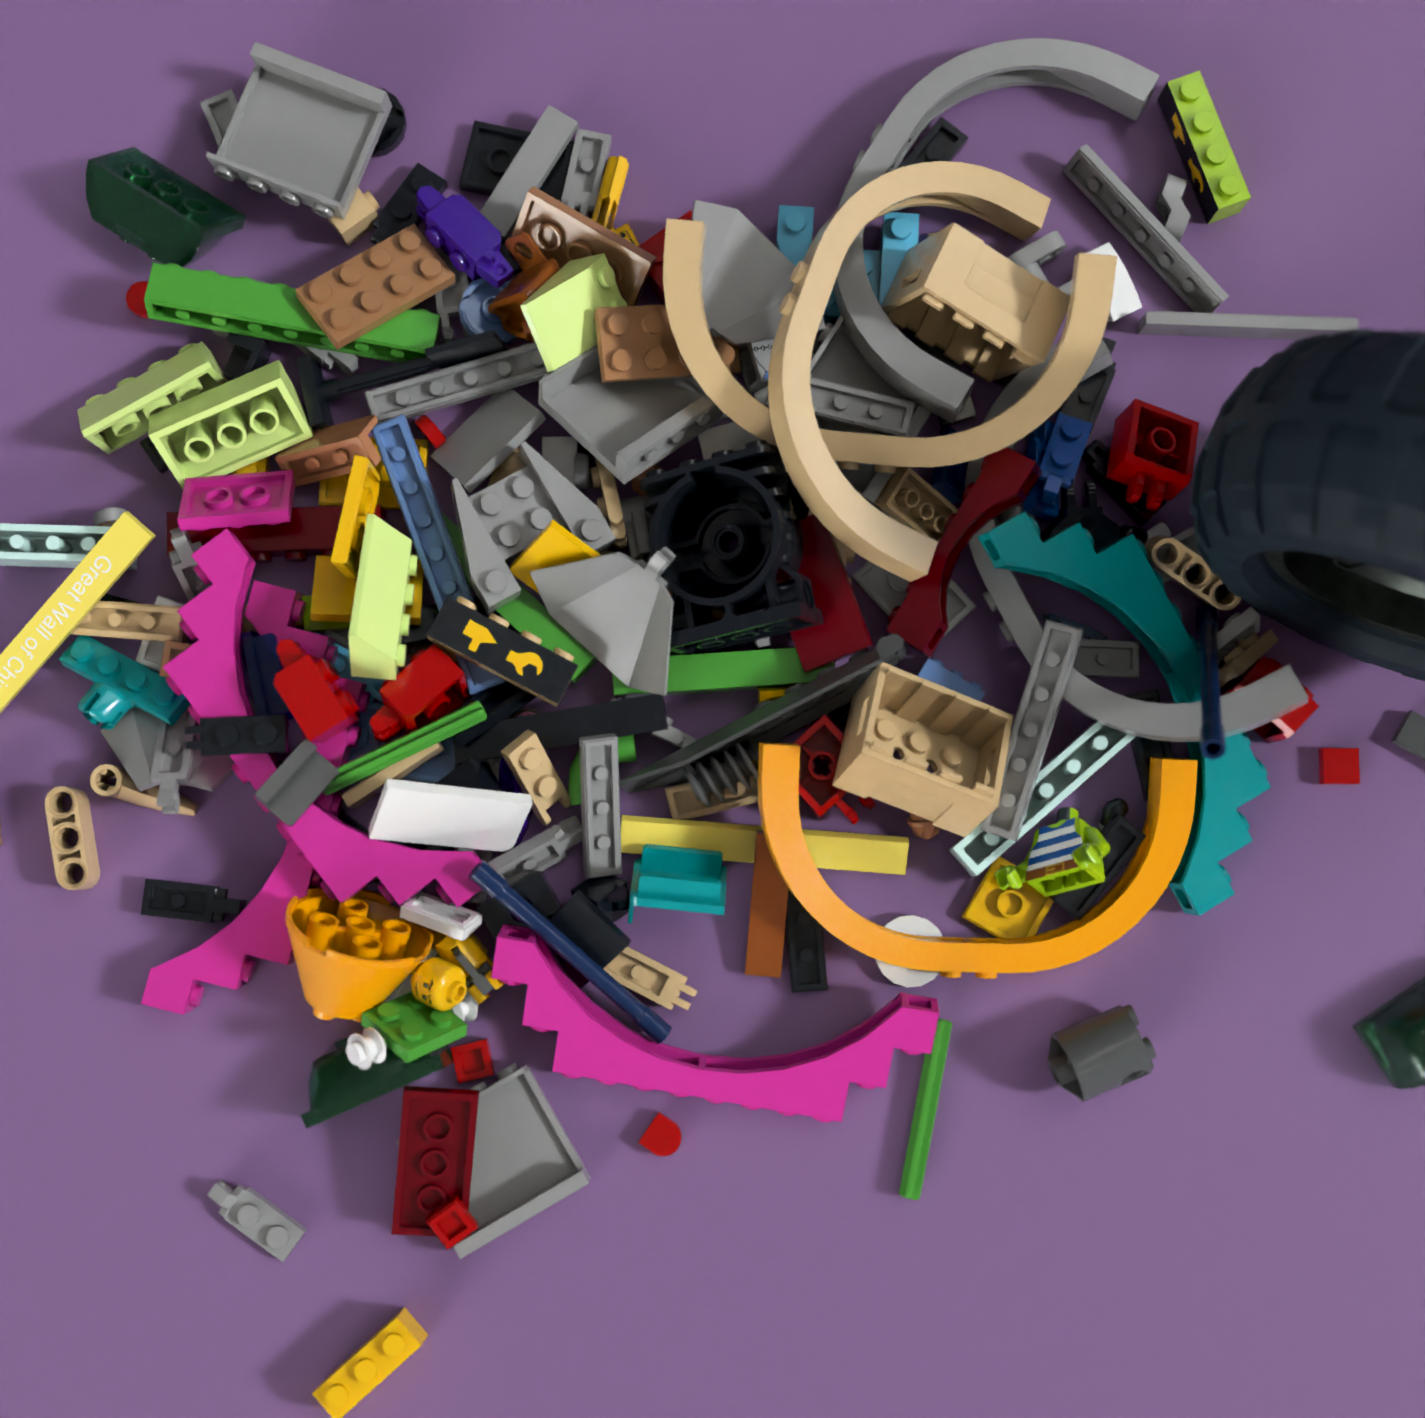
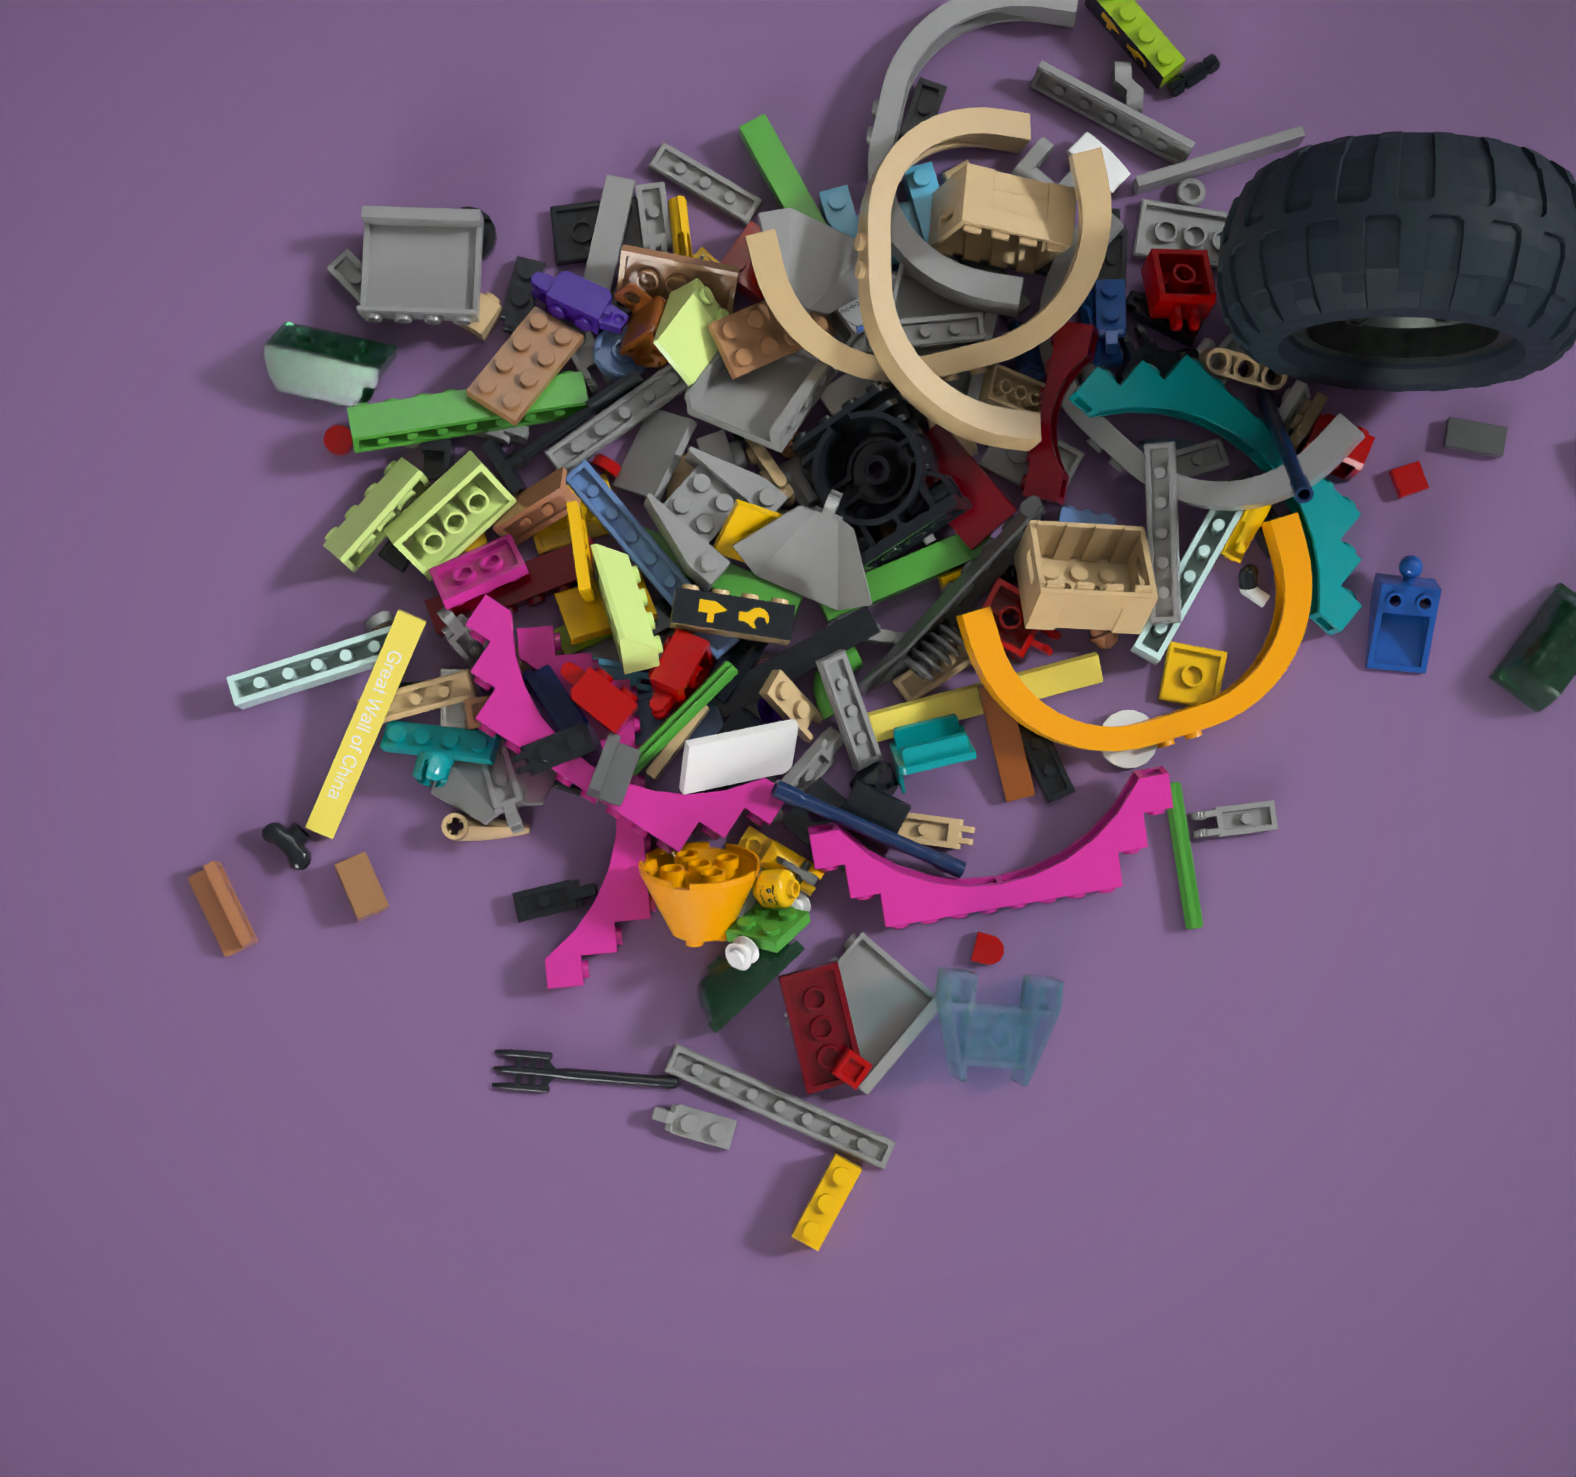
camera: 20 degrees left, 0 degrees up
(59, 826) = (431, 872): tan beam -> none
(115, 1098) = (549, 1073): none -> black piece
(361, 1232) = (780, 1106): none -> light grey tile
(438, 916) = (756, 837): white tile -> none
(473, 1060) = (819, 944): red tile -> none
(633, 1241) = (995, 1032): none -> clear light blue wedge
(656, 153) = (705, 184): none -> light grey tile
(743, 162) = (777, 167): none -> bright green brick
(1004, 1089) = (1239, 819): none -> light grey hinge
(1060, 858) = (1219, 624): lime torso -> none
(1100, 1053) = (1302, 763): dark grey cylinder -> none
(1123, 841) = (1249, 622): black tile -> none
(1127, 762) = (1244, 532): none -> yellow piece
(1173, 386) = (1178, 227): none -> light grey tile
(1202, 352) = (1190, 192): none -> light grey tile
(1253, 220) = (1193, 75): none -> black axle
(1274, 934) = (1402, 627): none -> blue slope

